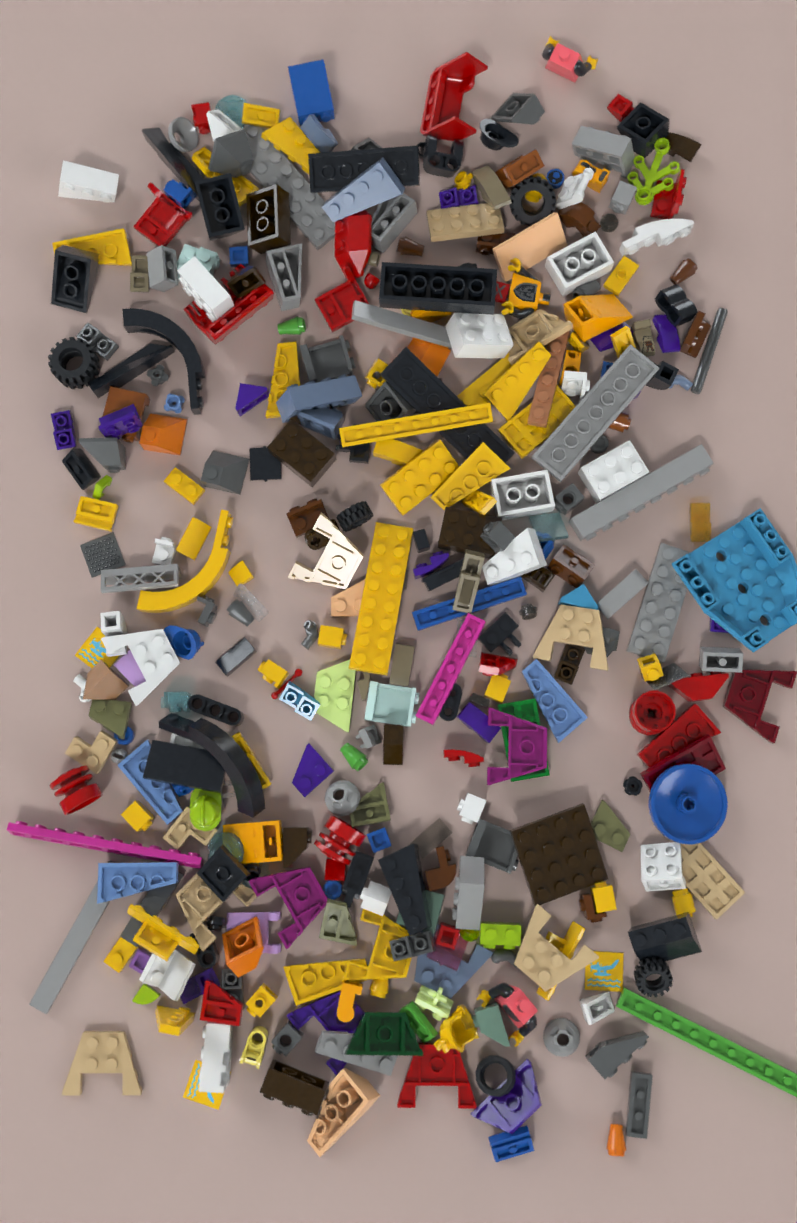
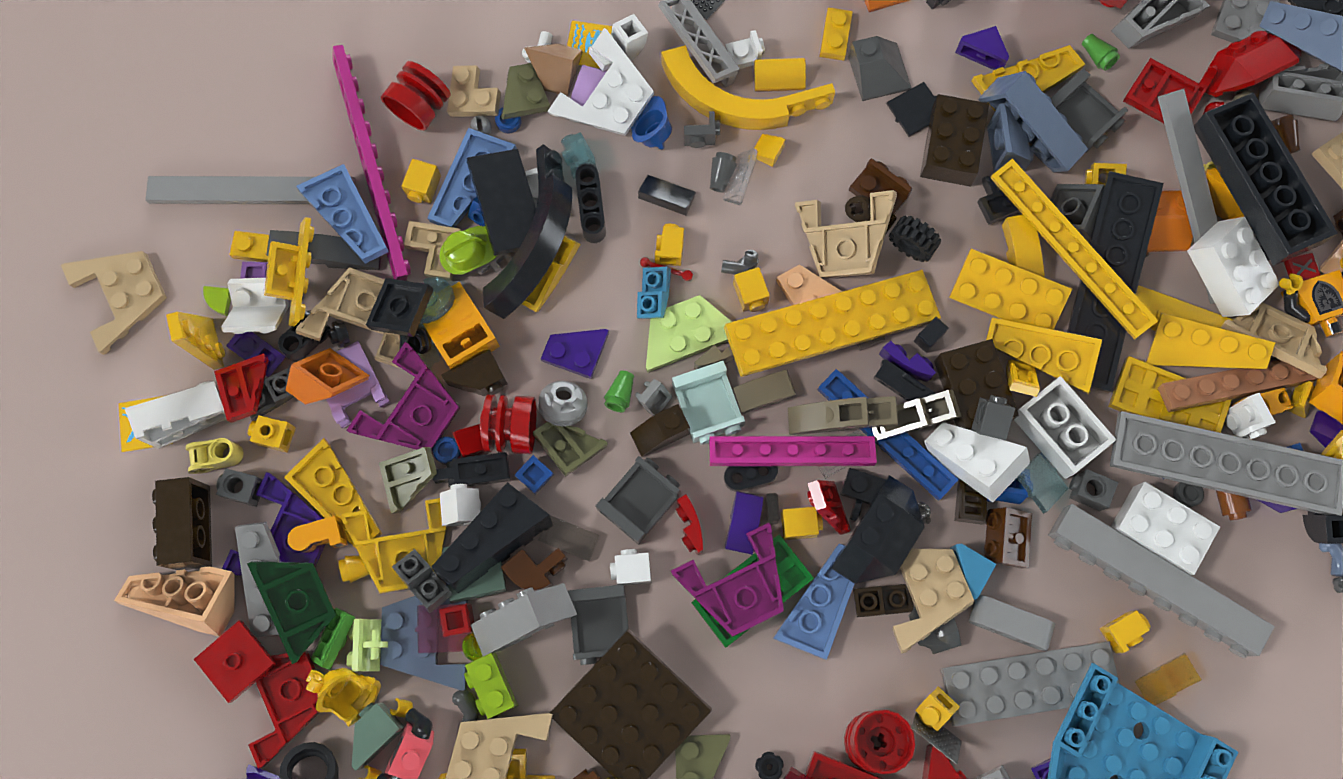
camera: 60 degrees right, 5 degrees down
(401, 1092) = (235, 661): none -> red plate
(430, 780) = (639, 499): none -> dark grey panel
(445, 625) = (842, 414): none -> dark tan slope
(531, 642) = (882, 535): none -> black wedge
(660, 529) = (1125, 631): none -> yellow brick

